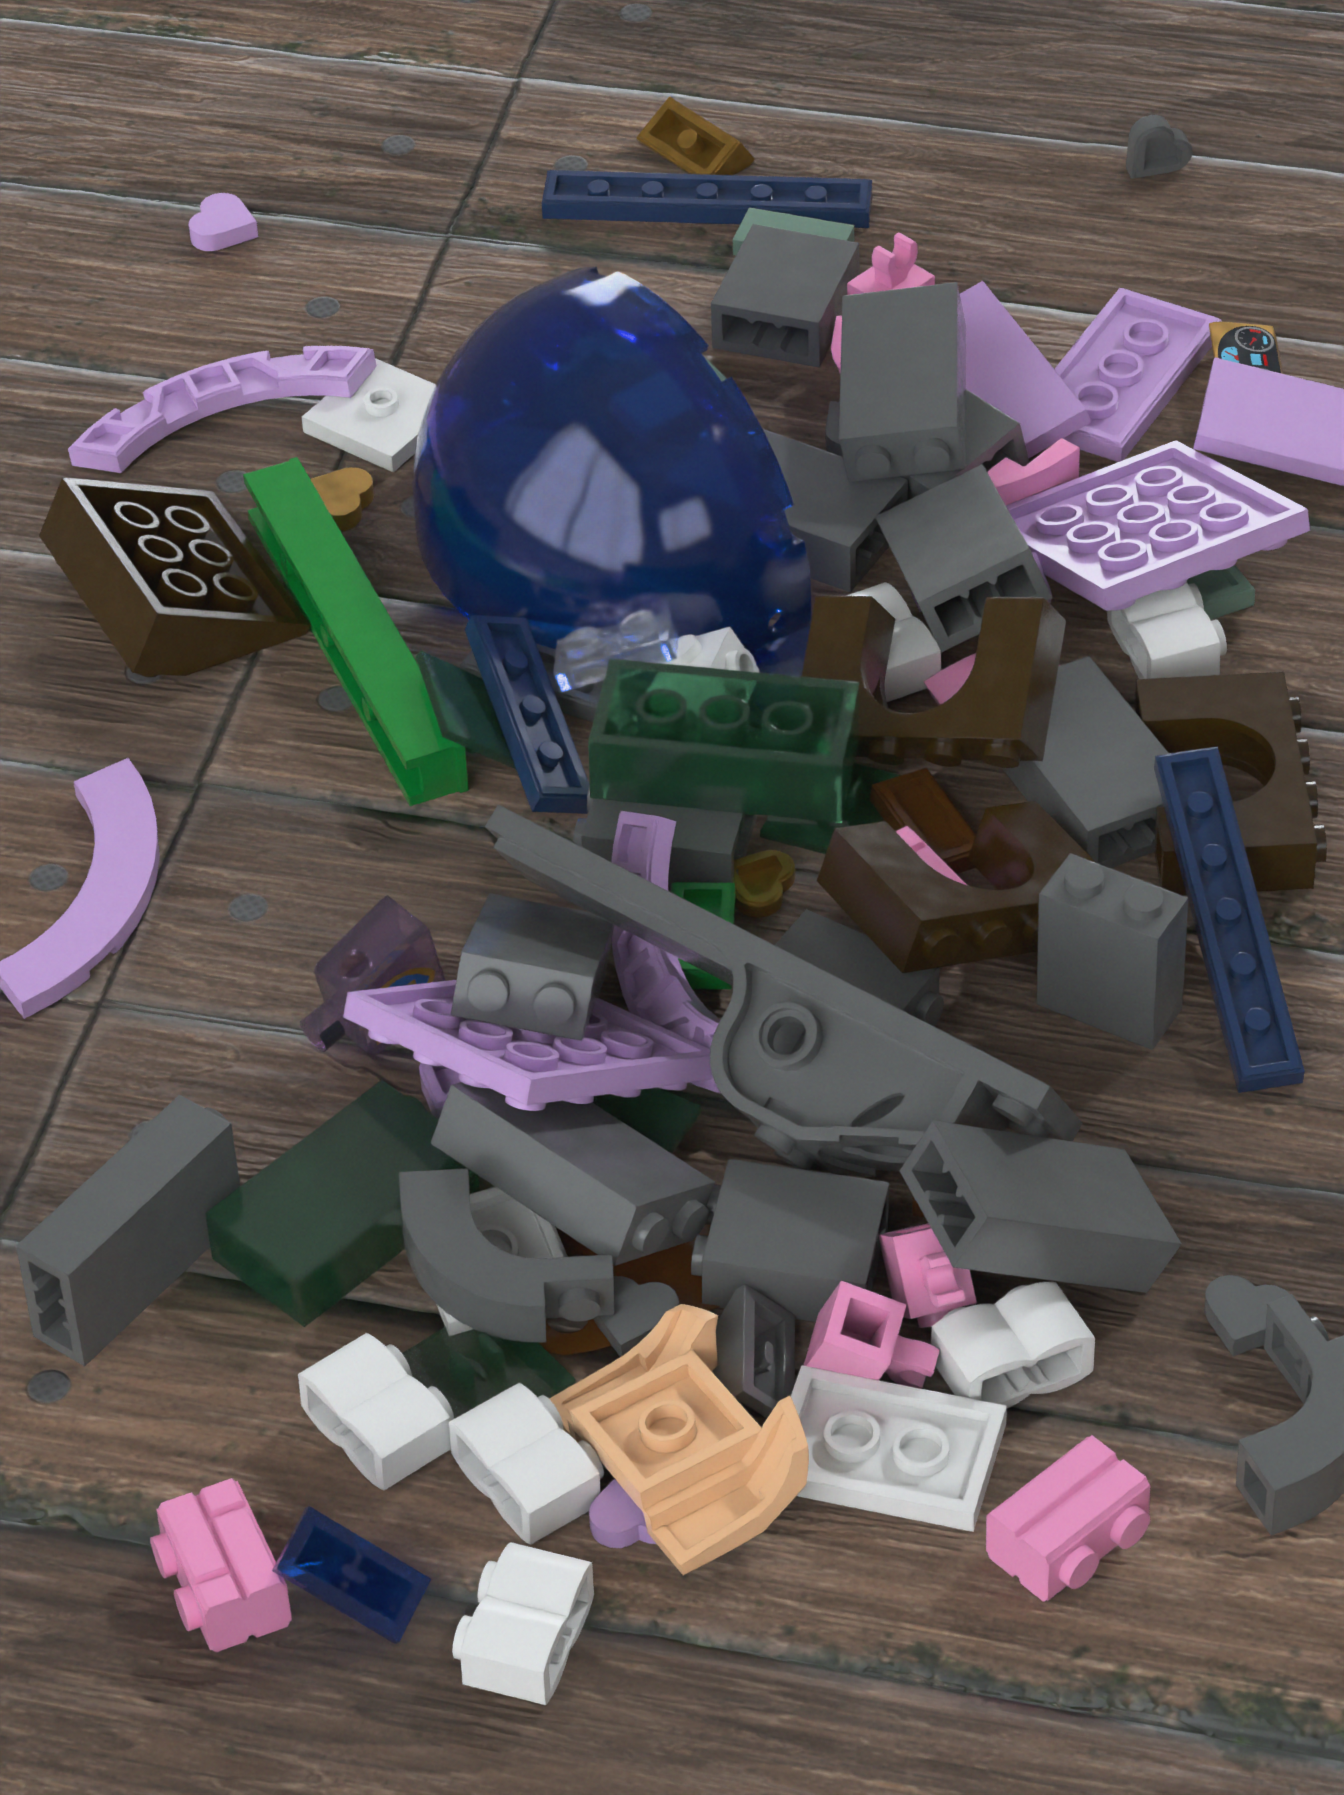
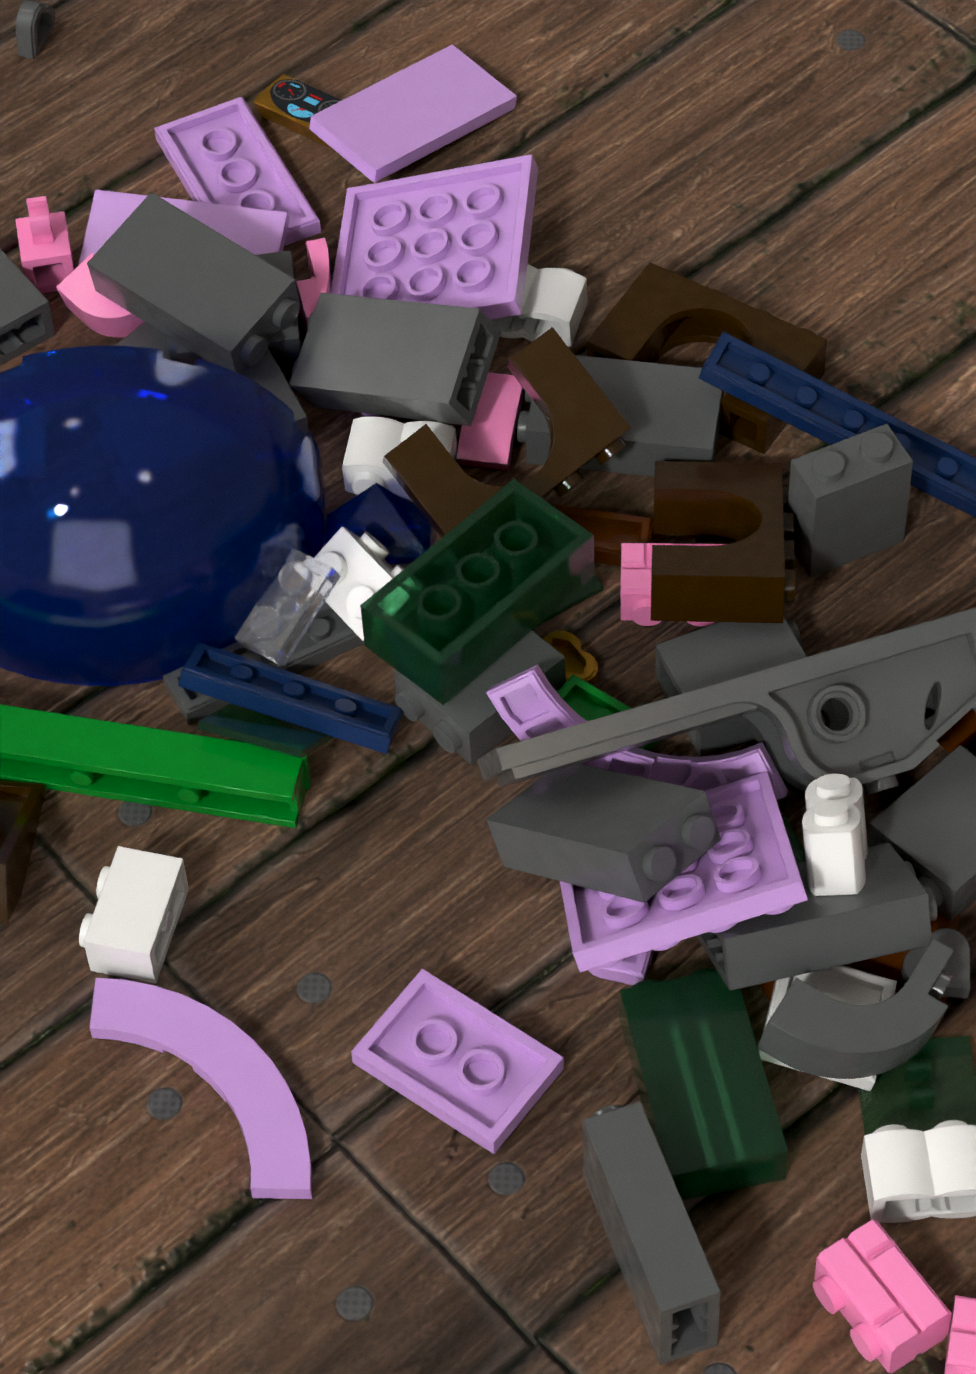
camera: 55 degrees left, 10 degrees up
(210, 1433) = (881, 1297): none -> bright pink brick
(211, 745) = (134, 914): none -> white brick
(235, 1028) = (458, 1060): none -> lavender plate
(379, 952) = (507, 941): clear purple torso -> none
(654, 1113) = (835, 835): none -> white brick

